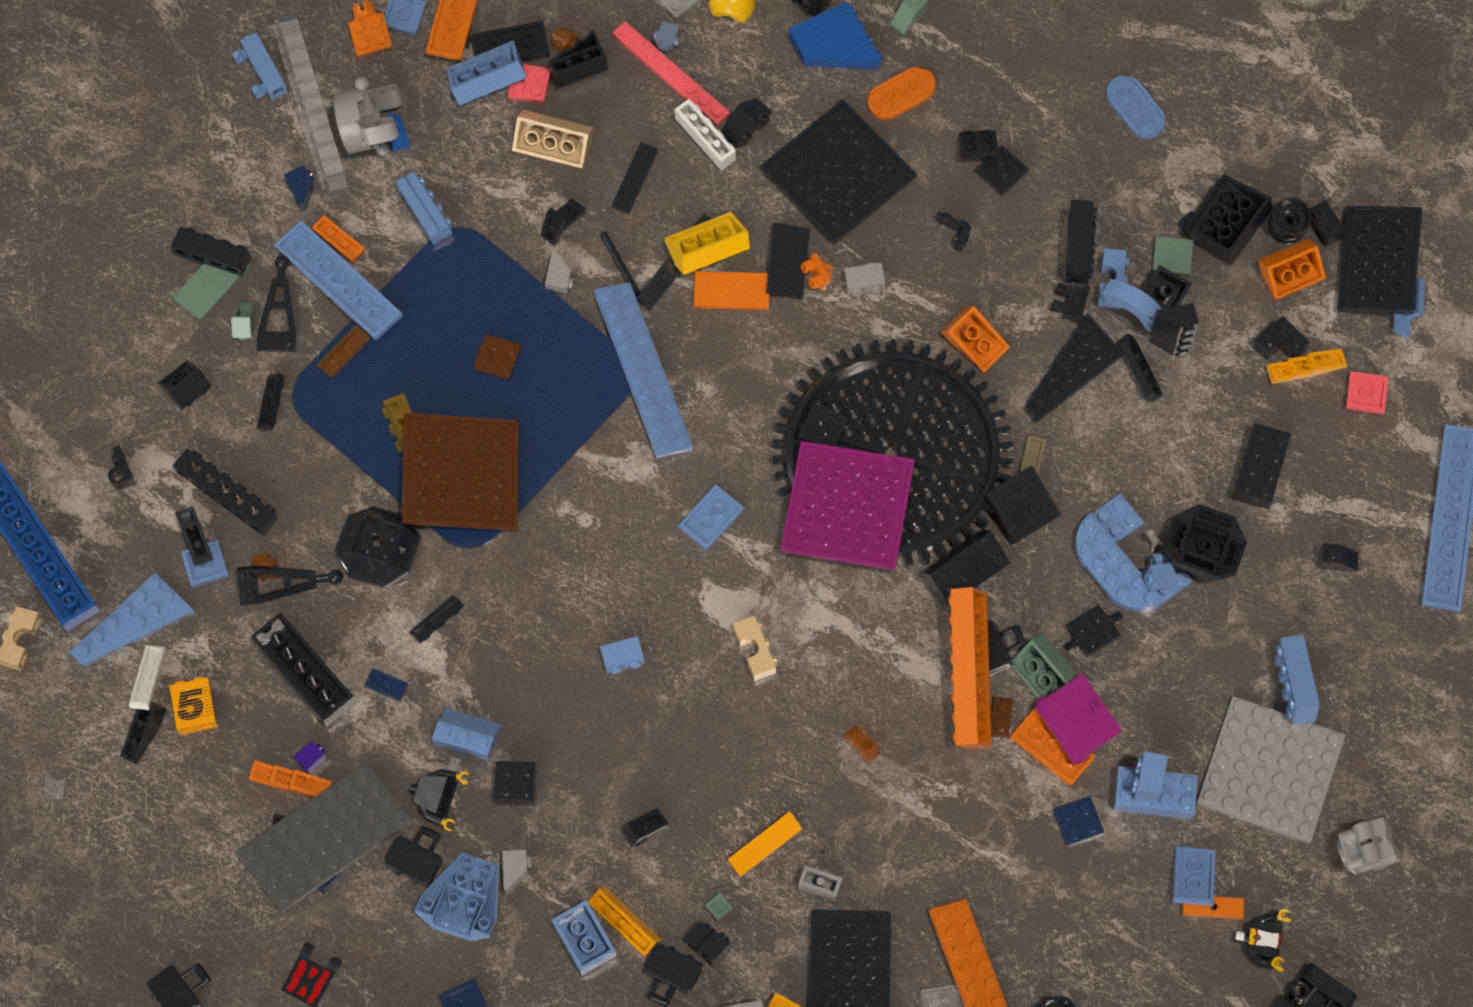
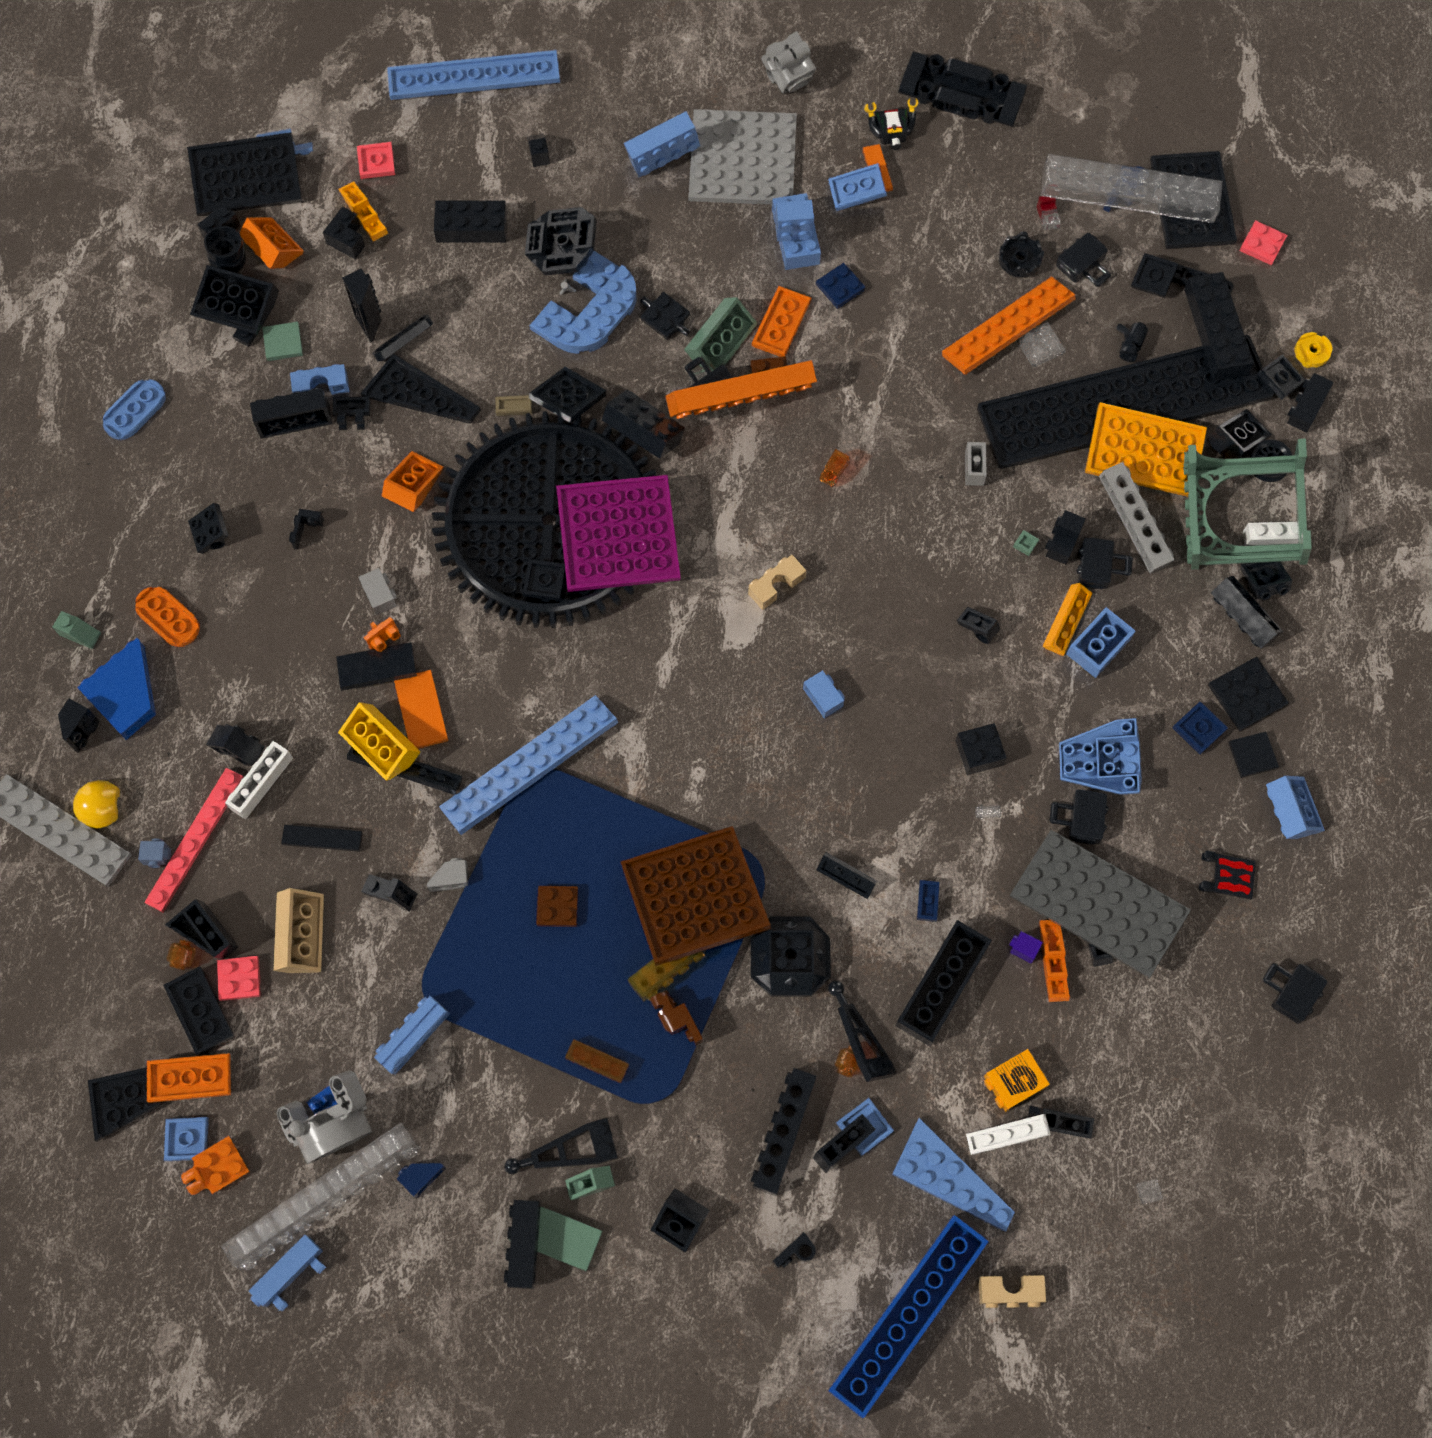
camera: 110 degrees left, 0 degrees up
(270, 402) = (672, 1120): black plate -> none
(338, 239) = (470, 1115): orange plate -> none
(338, 280) = (517, 1097): medium blue plate -> none
(356, 428) = (675, 1018): none -> reddish brown plate
(436, 794) = (1019, 815): black torso -> none
(466, 734) = (948, 809): medium blue slope -> none
(486, 73) = (240, 1020): medium blue slope -> none
(514, 868) = (1060, 724): light grey slope -> none
(619, 262) = (418, 825): black bar -> none
(711, 517) = (660, 659): medium blue tile -> none
(764, 844) = (954, 523): light orange slope -> none
(838, 171) = (267, 648): black plate -> none
(1002, 171) = (232, 501): black plate -> none
(1073, 719) = (758, 300): magenta door -> none
(1133, 300) = (342, 350): medium blue arch -> none
(1160, 575) = (601, 267): medium blue brick -> none
(1167, 288) = (323, 333): black brick -> none

